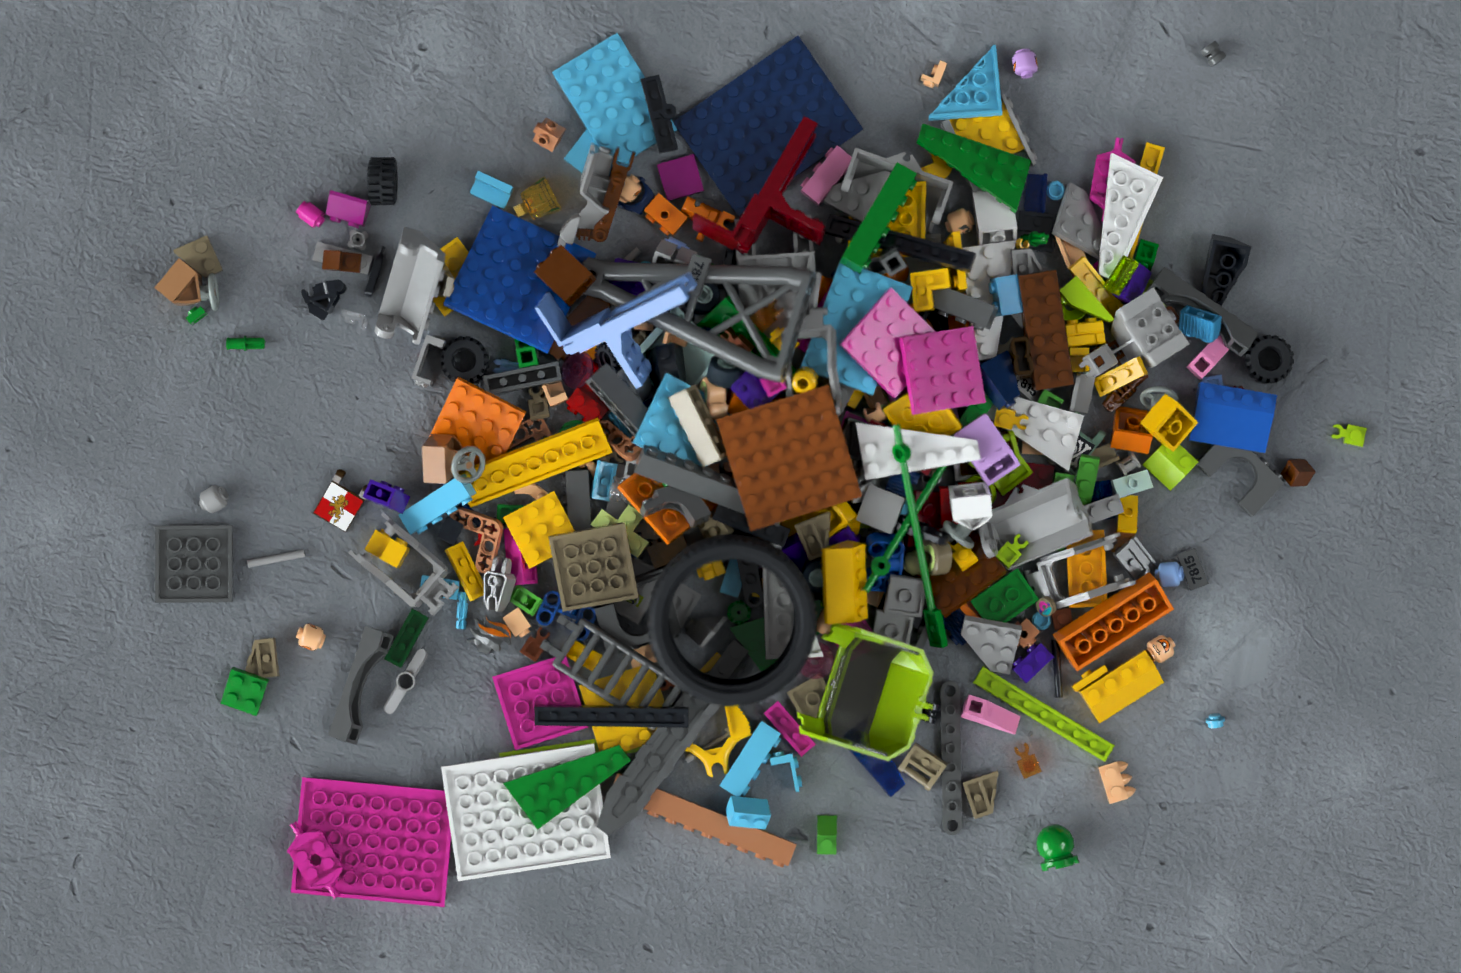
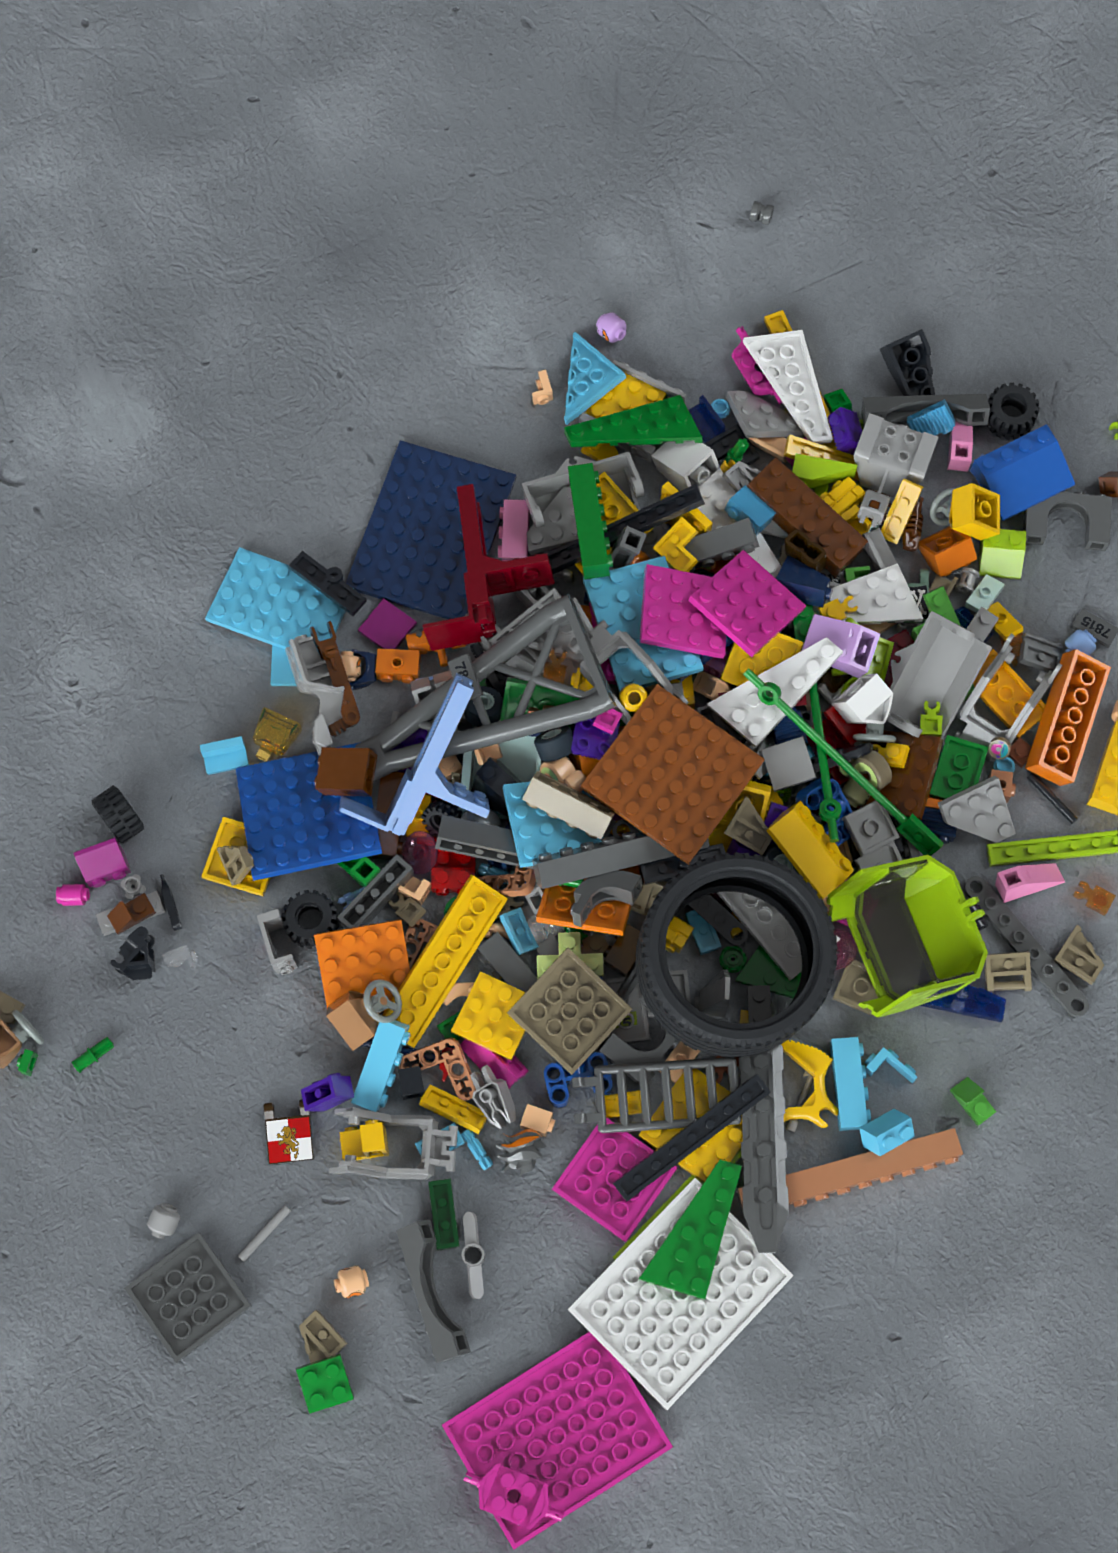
camera: 30 degrees left, 15 degrees down
(411, 286) = (211, 882): light grey piece -> none
(525, 600) = (530, 1093): bright green slope -> none
(532, 646) = (569, 1131): copper plate -> none
(548, 134) = (241, 671): nougat brick -> none
(789, 728) = (863, 1028): dark pink plate -> none
(960, 221) = (654, 487): light nougat head -> none
(1032, 663) = (1028, 806): dark purple brick -> none
(1088, 677) = (1086, 783): yellow plate -> none
(1121, 275) = (833, 427): clear neon green tile -> none

